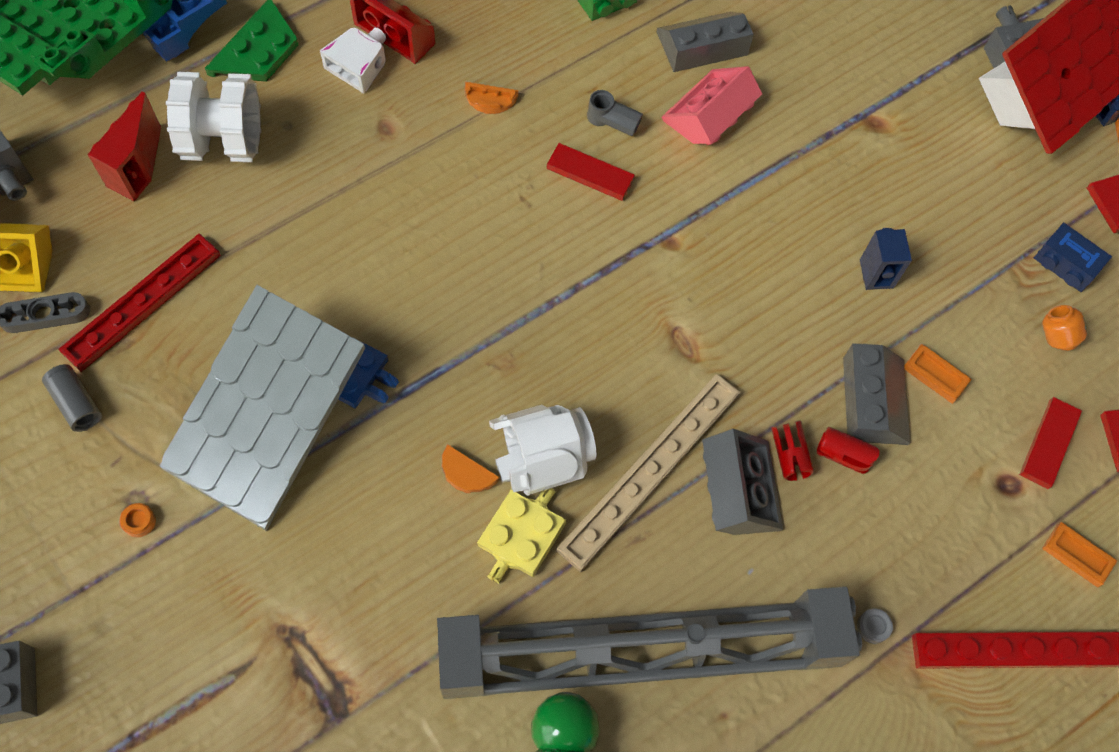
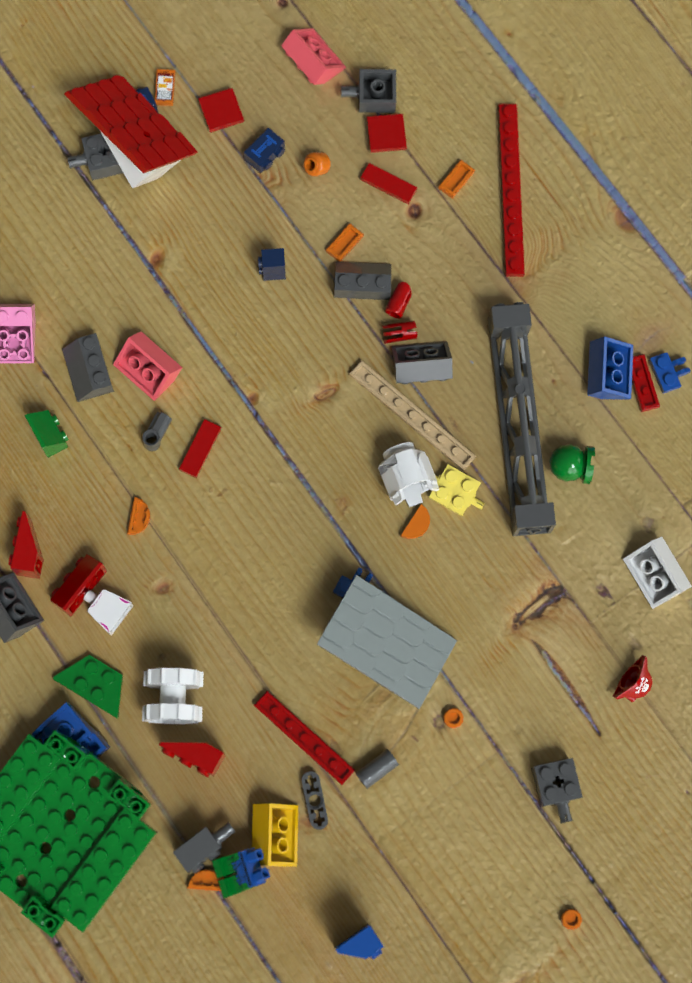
camera: 90 degrees left, 10 degrees up
(874, 626) = (502, 295): light grey tile -> none

